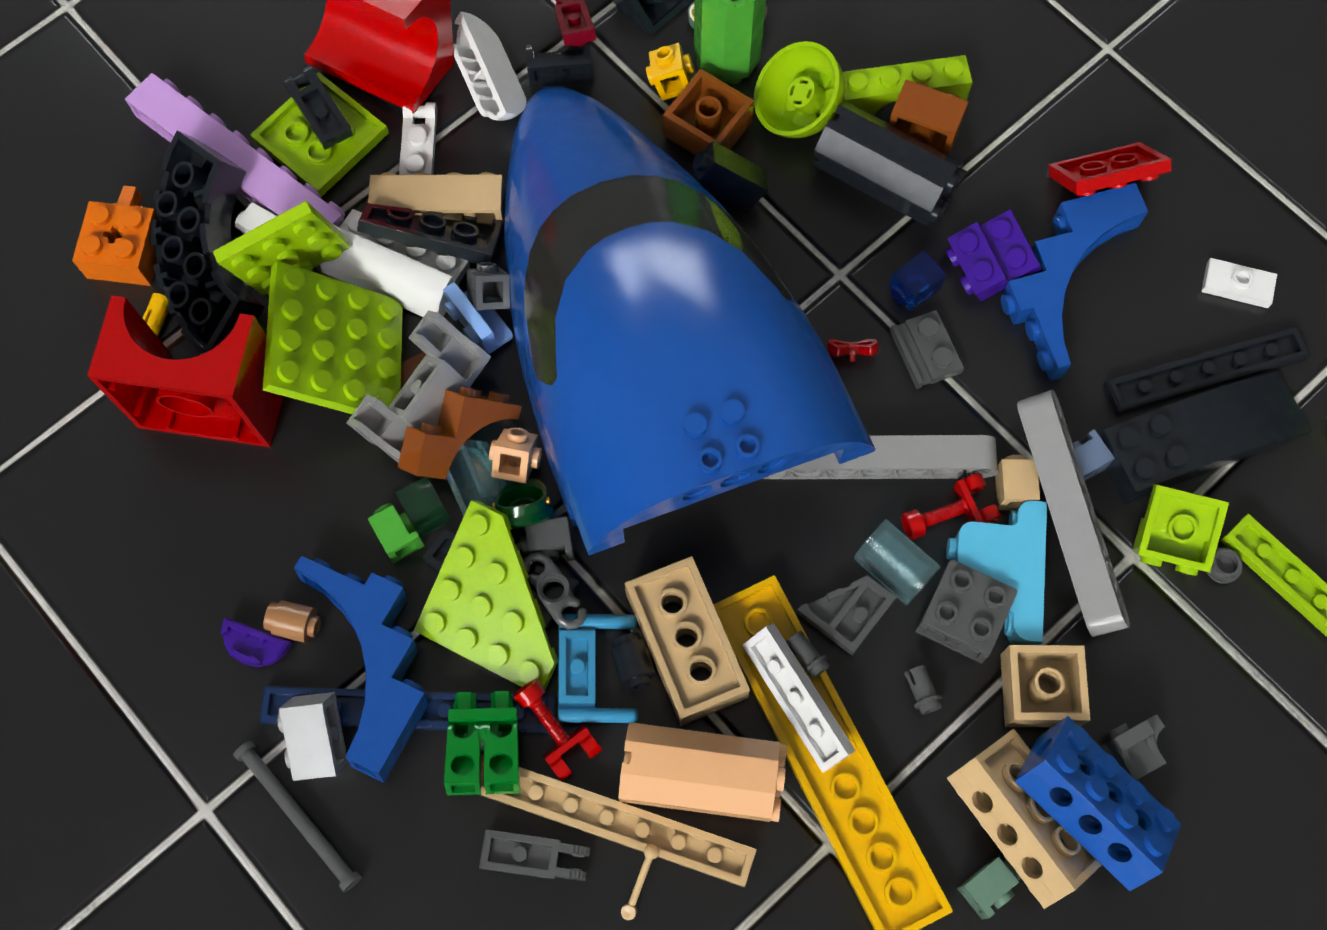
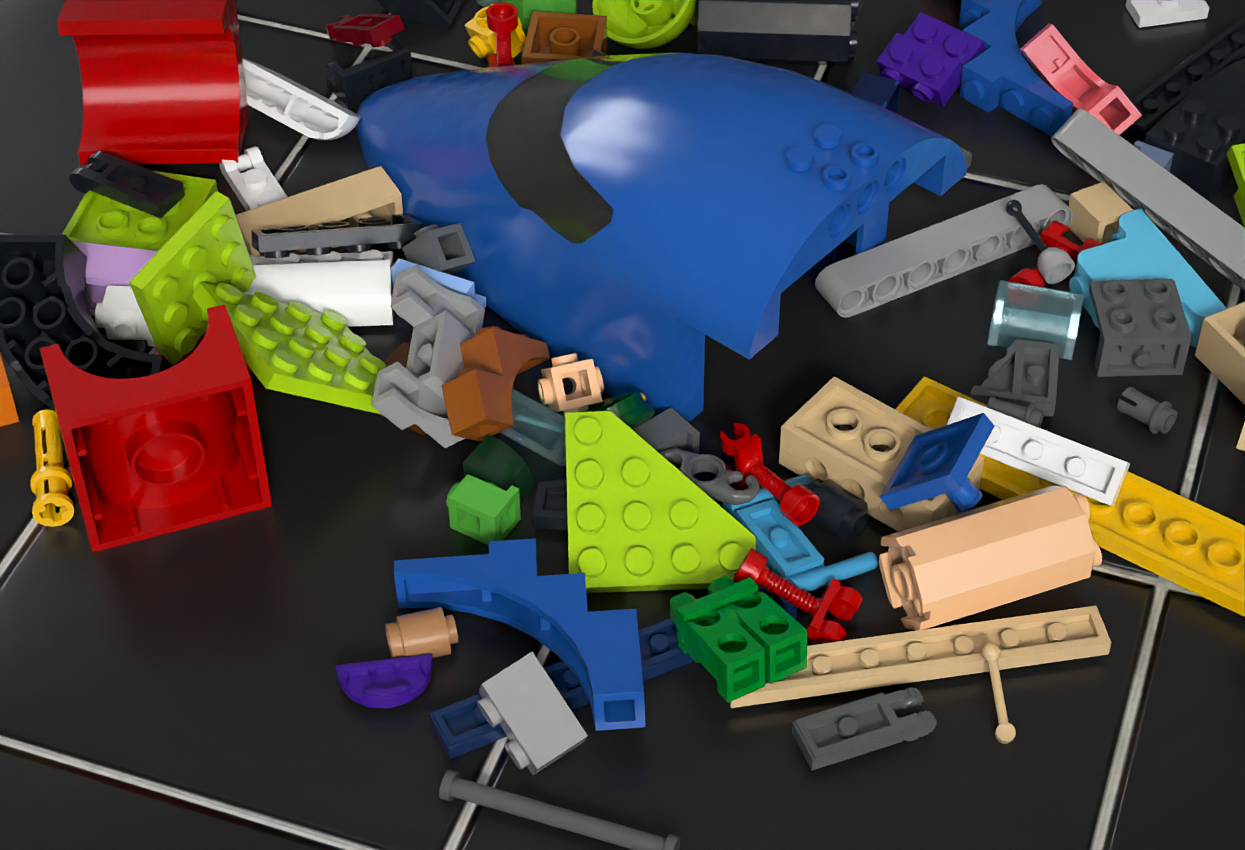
camera: 30 degrees left, 25 degrees down
(594, 596) = (797, 502): none -> red bar
(654, 84) = (502, 20): none -> red bar
(696, 694) = (939, 465): none -> blue tile
(942, 518) = (1053, 262): none -> light grey hinge
(1093, 350) = (1074, 80): none -> coral arch

